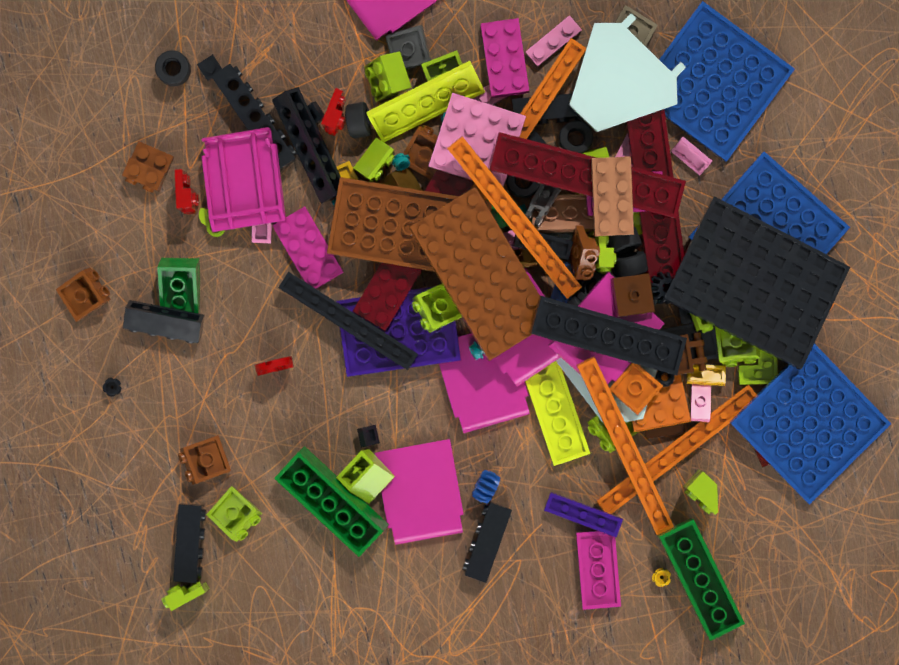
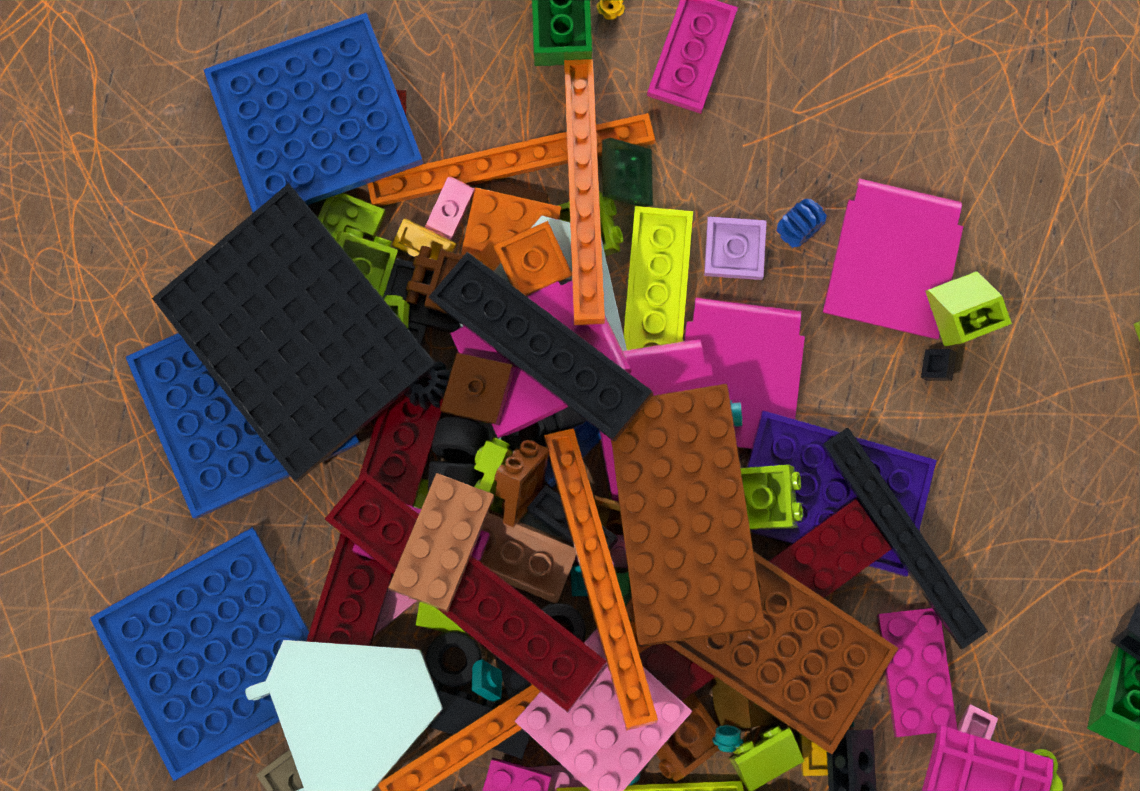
camera: 155 degrees left, 10 degrees down
(274, 365) = (1045, 522): red plate -> none
(331, 501) = (1037, 300): green brick -> none
(488, 541) = (830, 149): black brick -> none
(519, 455) = (735, 248): none -> lavender plate
(542, 202) = (547, 583): dark grey hinge -> none
(551, 133) = (486, 680): none -> teal plate
(583, 514) = (681, 129): dark purple plate -> none
(604, 471) = (627, 172): none -> clear green plate
(665, 383) = (487, 251): black plate -> none
(691, 156) = (299, 558): bright pink plate -> none
(703, 489) = (502, 87): lime slope -> none

